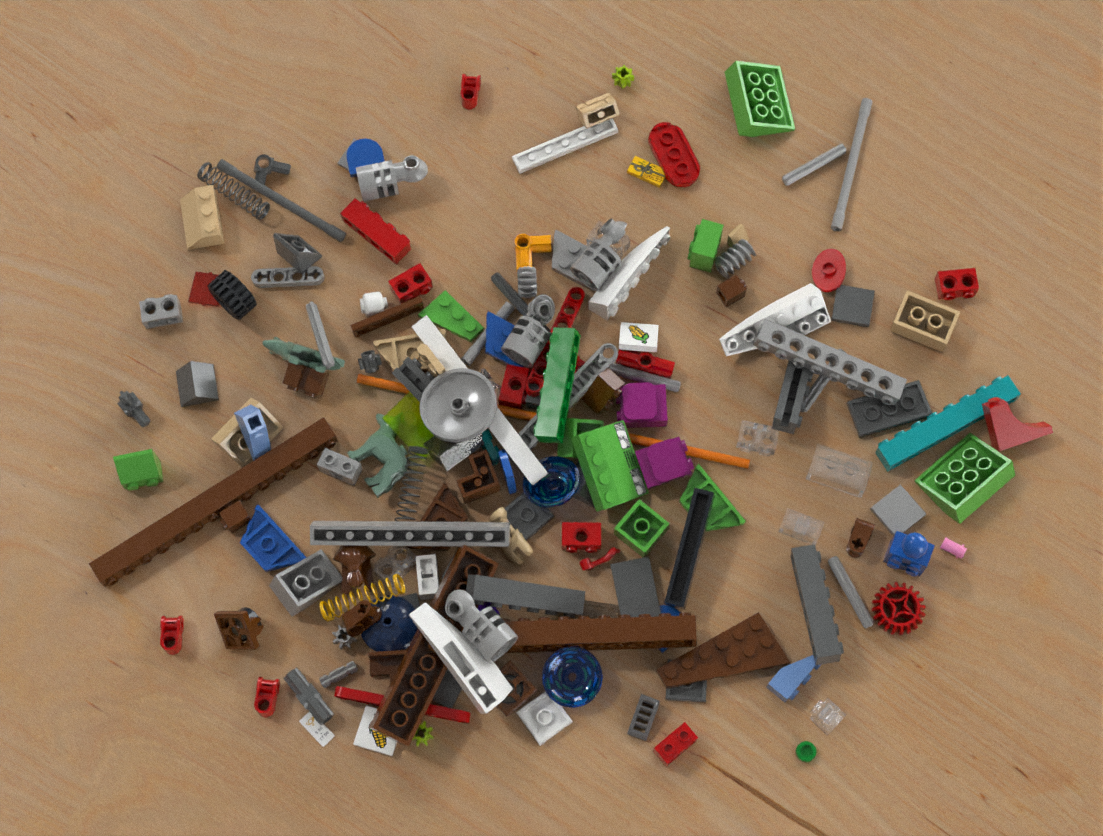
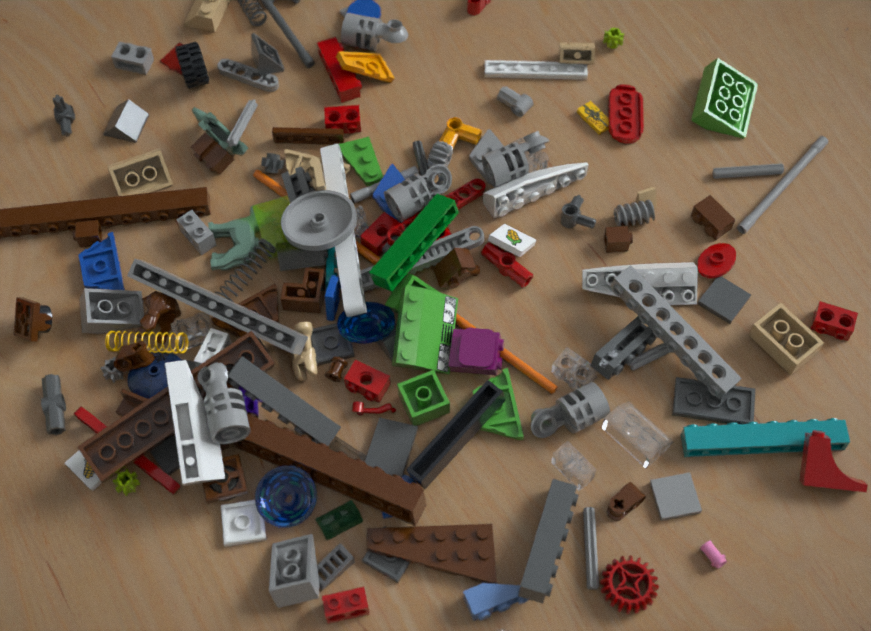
camera: 25 degrees right, 10 degrees down
(138, 469) = (36, 162): bright green slope -> none
(253, 430) = (141, 170): medium blue slope -> none
(266, 692) = (22, 385): red piece -> none
(319, 732) = (45, 440): white sticker -> none
(338, 674) = (90, 398): light grey axle -> none
(373, 303) = (302, 119): white head -> none
(402, 215) = (366, 64): none -> light orange wing
(546, 538) = (336, 369): none -> reddish brown bush
(570, 189) = (518, 103): none -> light grey piece
(615, 737) = (294, 571): none -> light grey slope
(625, 673) = (339, 520): none -> clear green slope
(642, 376) = (500, 277): light grey axle -> none
(643, 405) = (484, 297): magenta brick -> none
(677, 279) = (572, 215): none -> dark grey axle
(705, 245) = (612, 190): bright green brick -> none
(778, 476) = (573, 410): none -> light grey cylinder
(805, 228) = (713, 217): none -> reddish brown brick
(909, 553) = (664, 535): blue brick -> none
(966, 477) = (758, 495): bright green slope -> none

